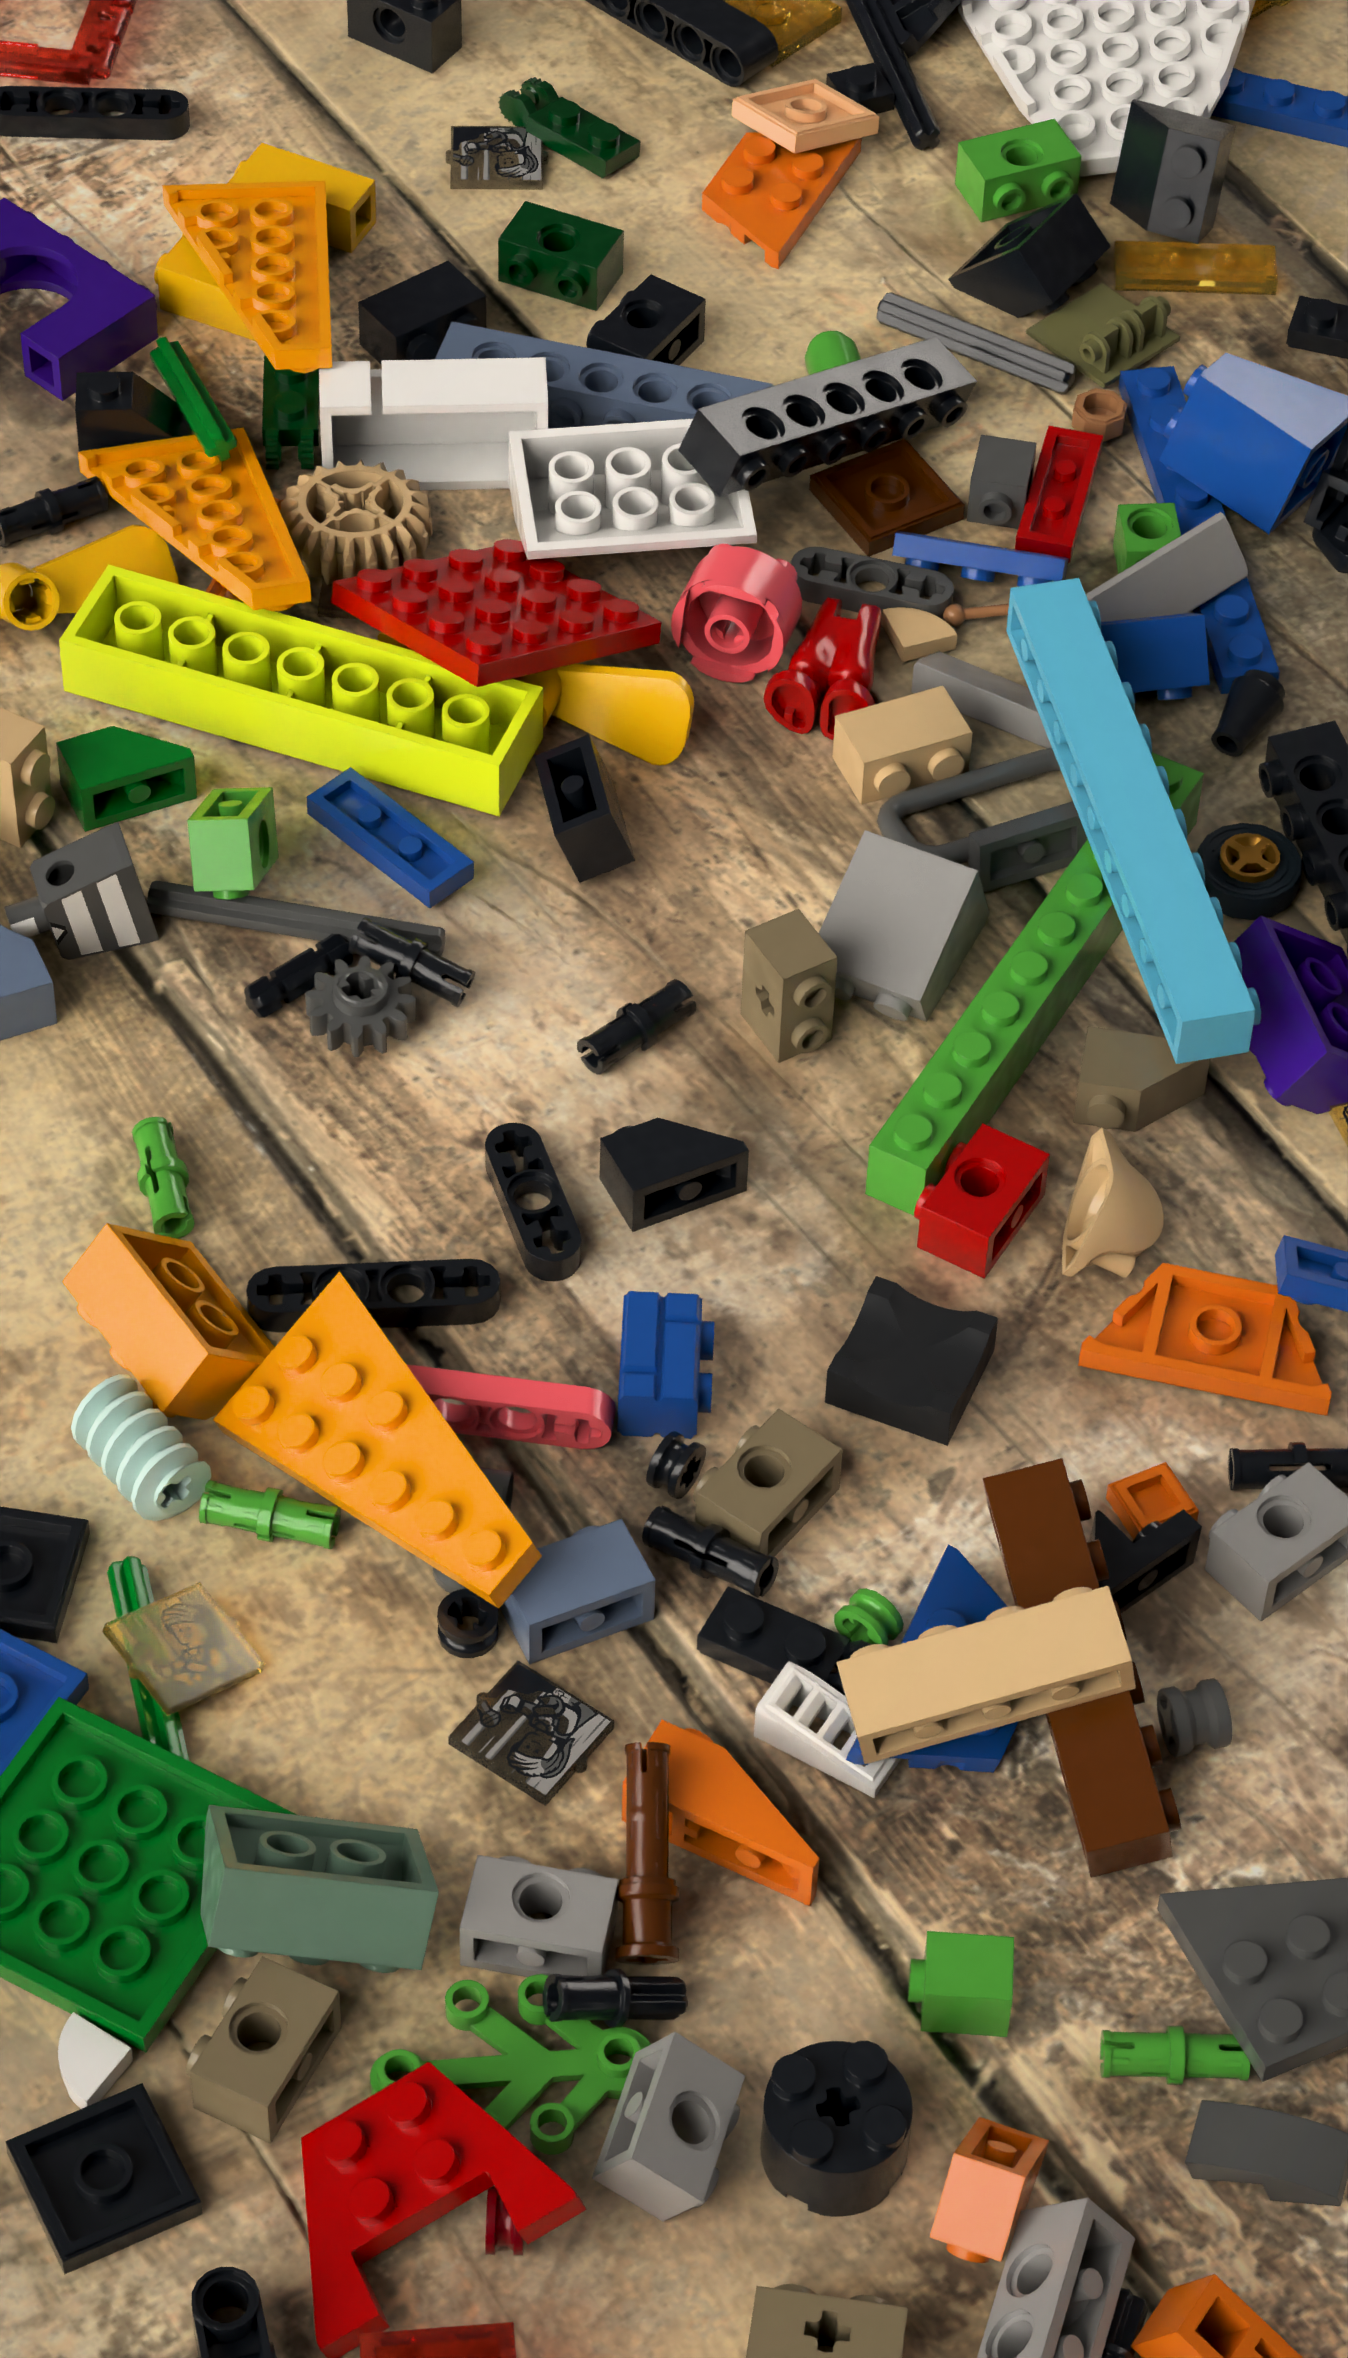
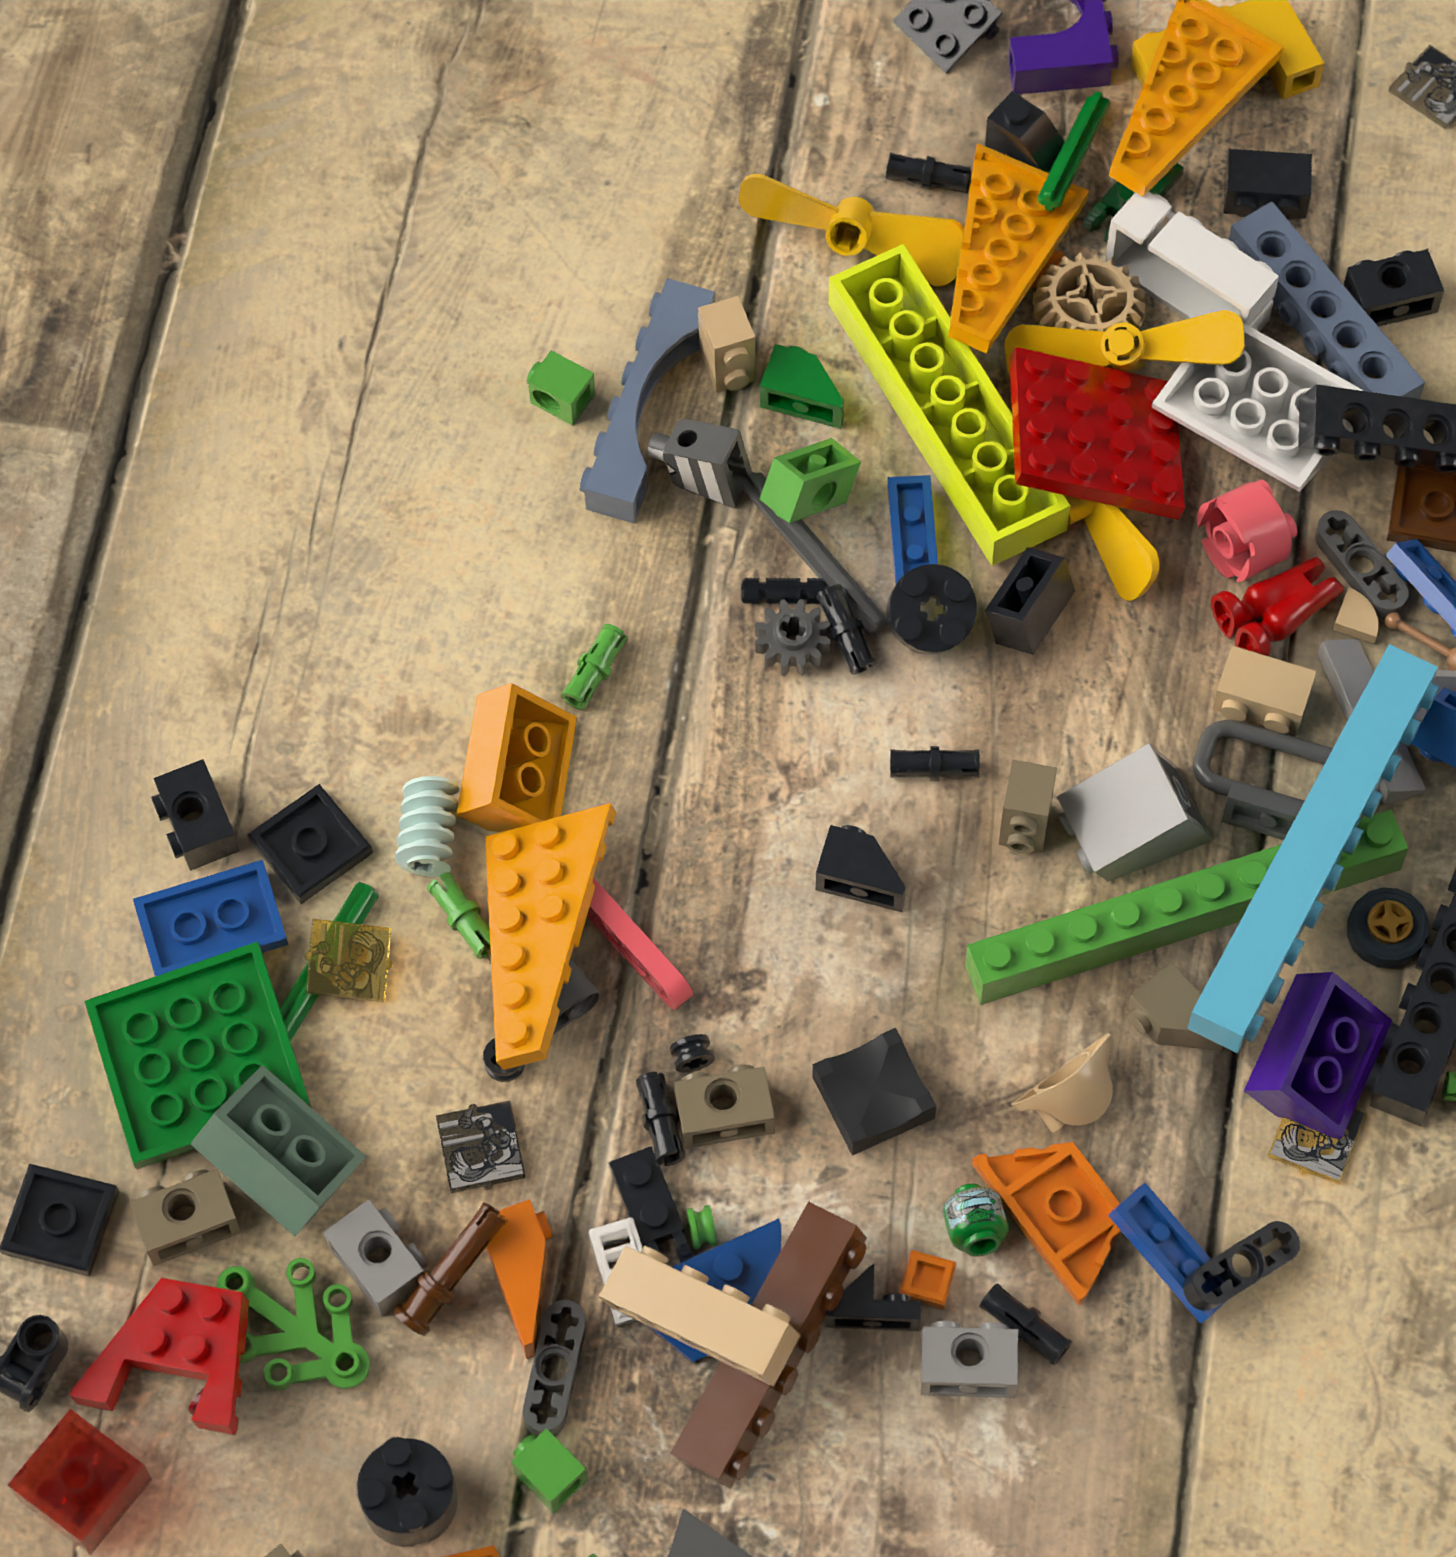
camera: 45 degrees right, 15 degrees up
(90, 2060) = (105, 1152): white tile -> none
(373, 1285) = (641, 820): black beam -> none
(492, 875) = (951, 593): none -> black brick
(519, 464) = (1203, 339): none -> yellow piece
(529, 1224) = (772, 812): black beam -> none
(560, 255) = (1396, 171): dark green brick -> none
(581, 1592) = (571, 1086): sand blue brick -> none
(613, 1997) = (369, 1331): black axle -> none
(662, 1364) = (741, 987): blue brick -> none
(670, 2127) = (299, 1424): light grey brick -> none
(859, 1915) = (549, 1332): none -> dark grey beam
(981, 1200) = (996, 1041): red brick -> none
(1145, 1405) = (975, 1220): none -> head
(1194, 1717) = (815, 1423): dark grey wheel -> none

